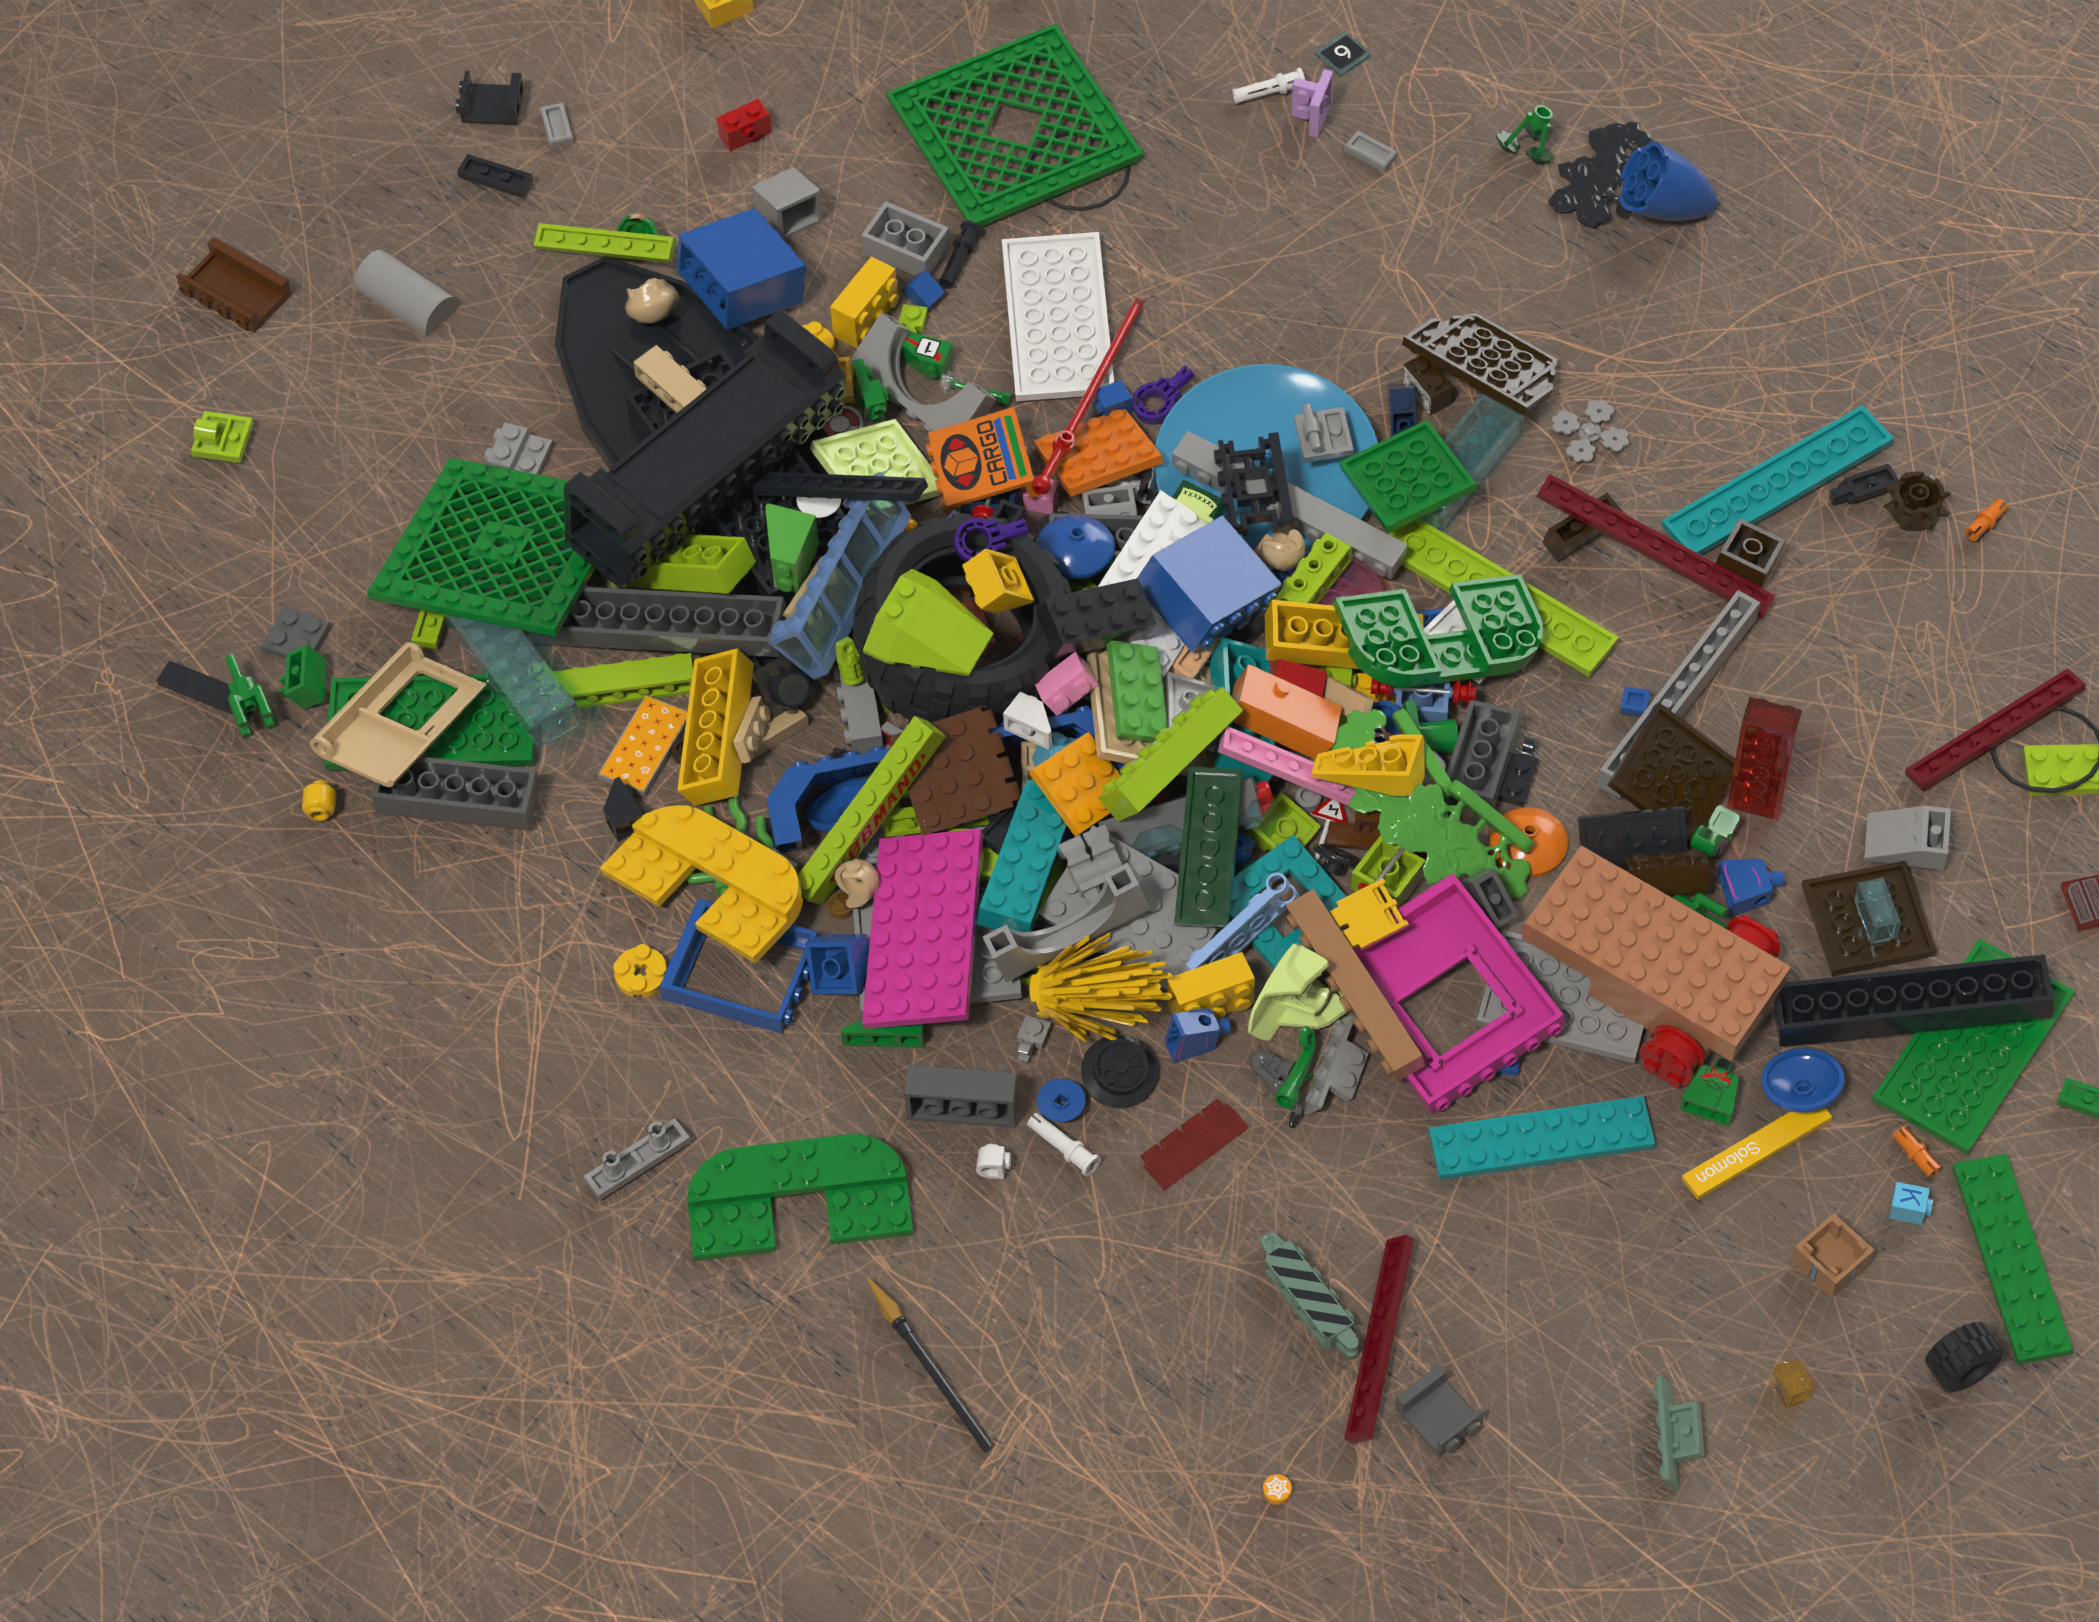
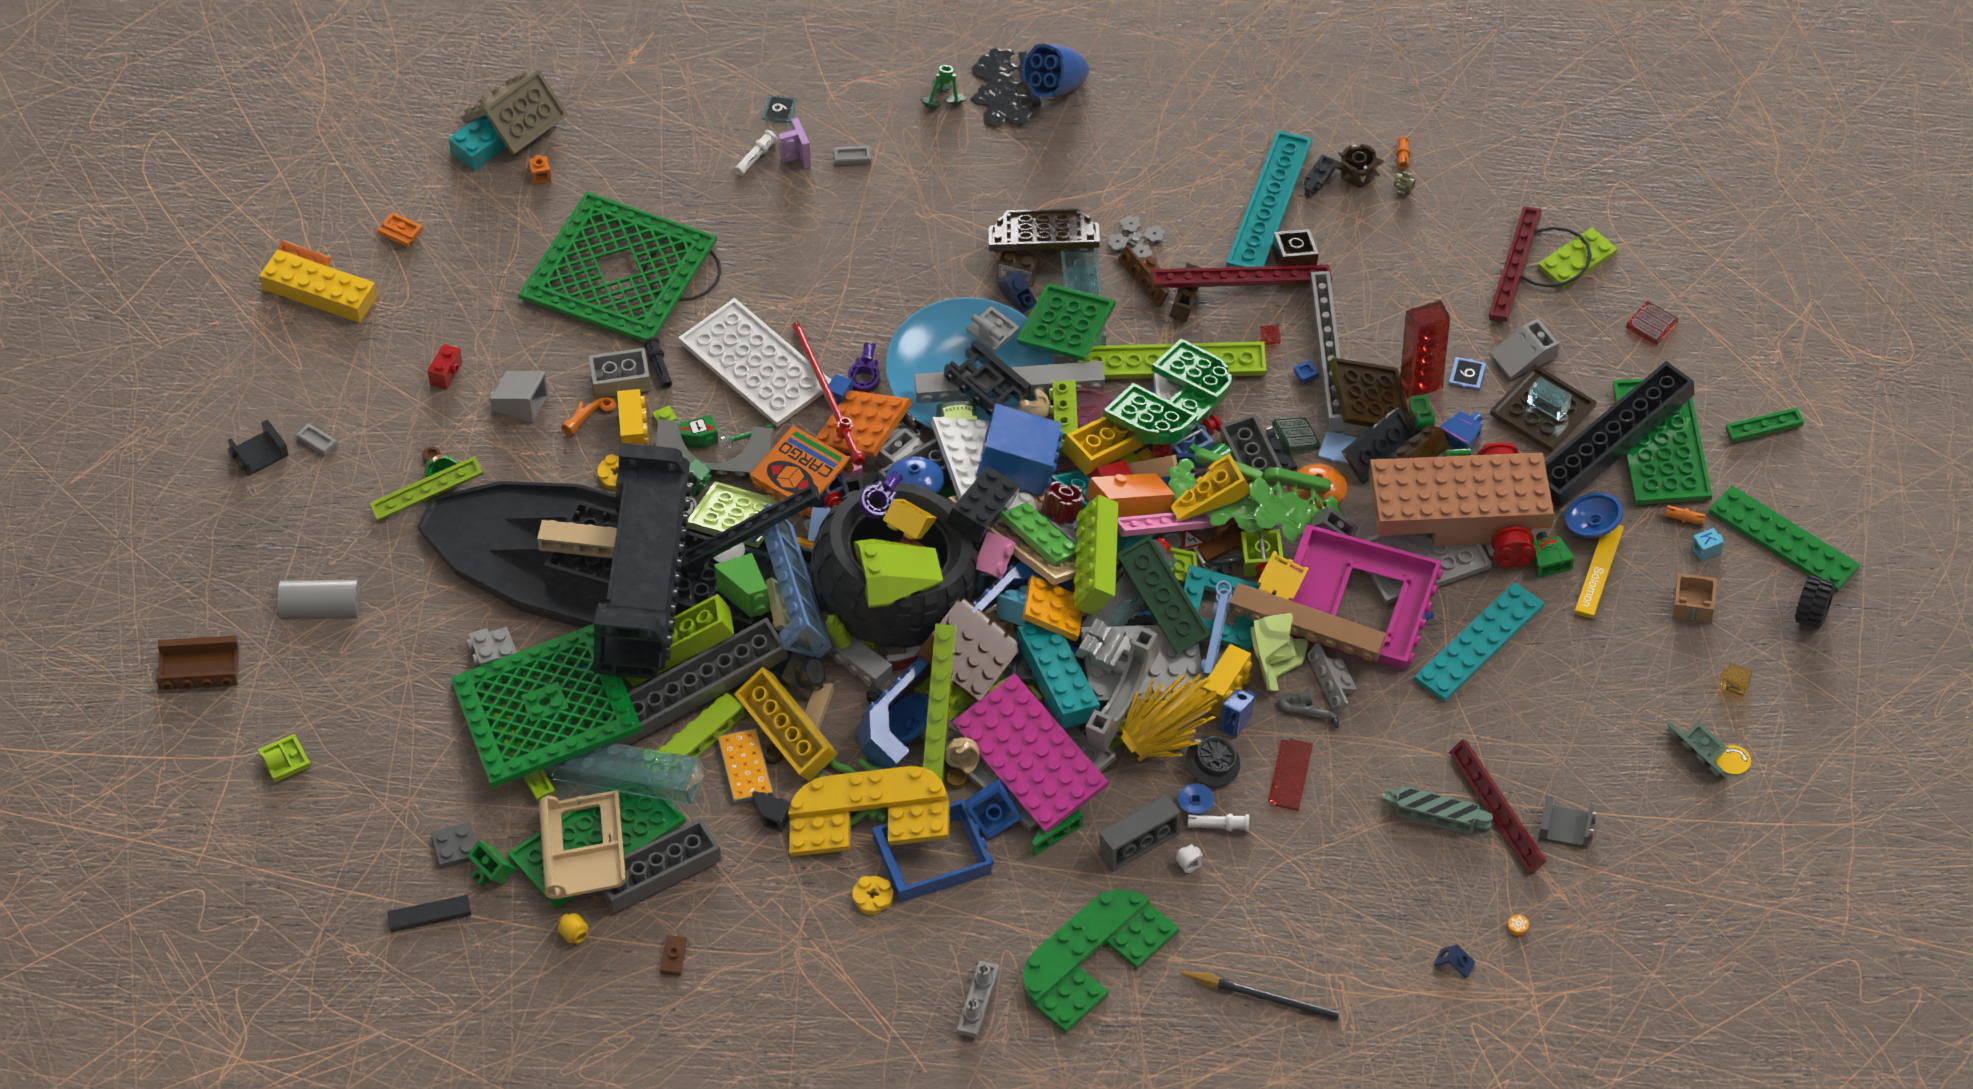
camera: 40 degrees left, 5 degrees down
(246, 698) = (467, 898): green plant -> none
(391, 897) = (673, 955): none -> reddish brown plate
(495, 175) = (307, 493): black plate -> none
(651, 210) = (429, 453): none -> reddish brown tile
(651, 301) = (496, 503): tan helmet -> none
(741, 268) = (536, 449): blue brick -> none
(751, 729) = (810, 710): tan plate -> none
(833, 262) = (571, 425): none -> orange plant
(923, 290) = (656, 396): blue brick -> none
(1028, 720) = (993, 590): white slope -> none
(1032, 1035) = (1142, 775): light grey plate -> none
(1170, 1480) = (1456, 958): none -> dark blue bracket
(1199, 671) = (1062, 502): none -> dark red brick
(1288, 1092) = (1322, 707): green plant -> none
(1555, 765) = (1296, 434): none -> clear green tile
(1565, 468) = (1140, 270): none -> reddish brown bracket
(1591, 802) = (1333, 445): none -> light blue piece
(1635, 634) = (1270, 334): none -> clear red plate
(1705, 1475) = (1734, 760): none -> yellow sticker
(1821, 821) = (1467, 373): none -> piece
(1952, 554) = (1404, 182): none -> olive gear

